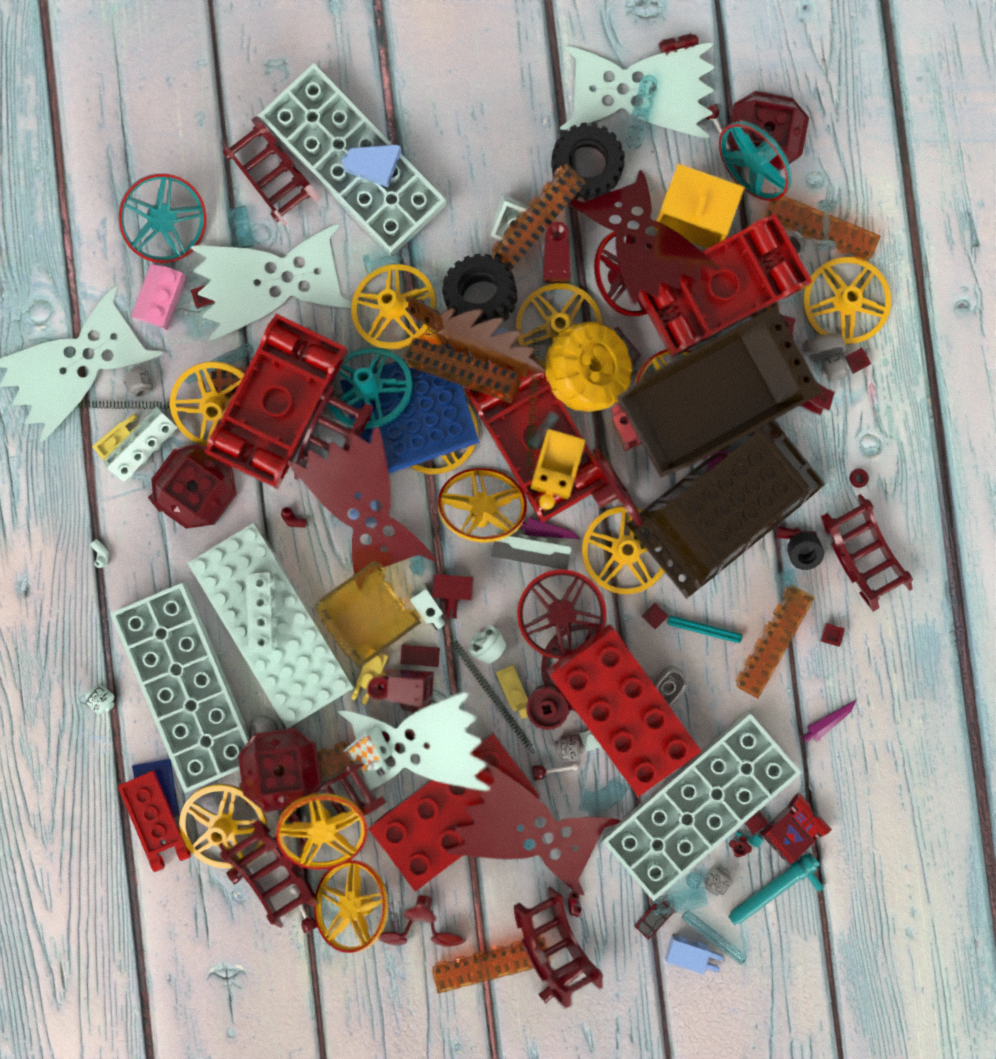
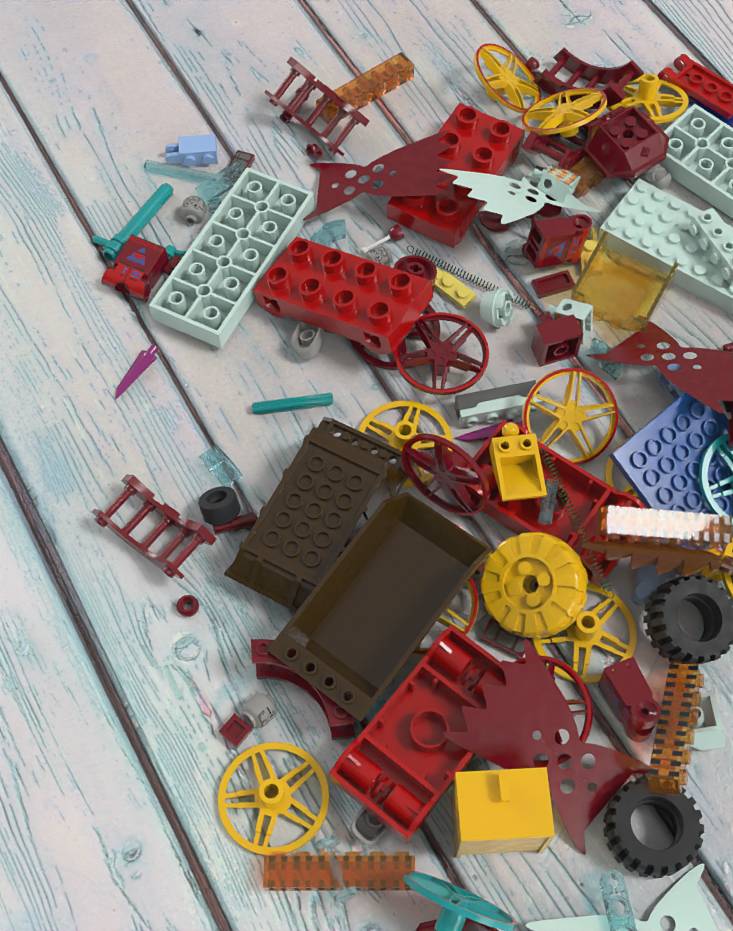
camera: 155 degrees right, 25 degrees down
(423, 913) = (445, 101): dark red plant -> none
(654, 616) = (347, 397): dark red plate -> none
(738, 852) = (182, 242): dark red plate -> none
(774, 641) = (218, 413): clear orange brick -> none
(823, 346) = (282, 728): light grey piece -> none
(832, 634) = (161, 444): dark red plate -> none

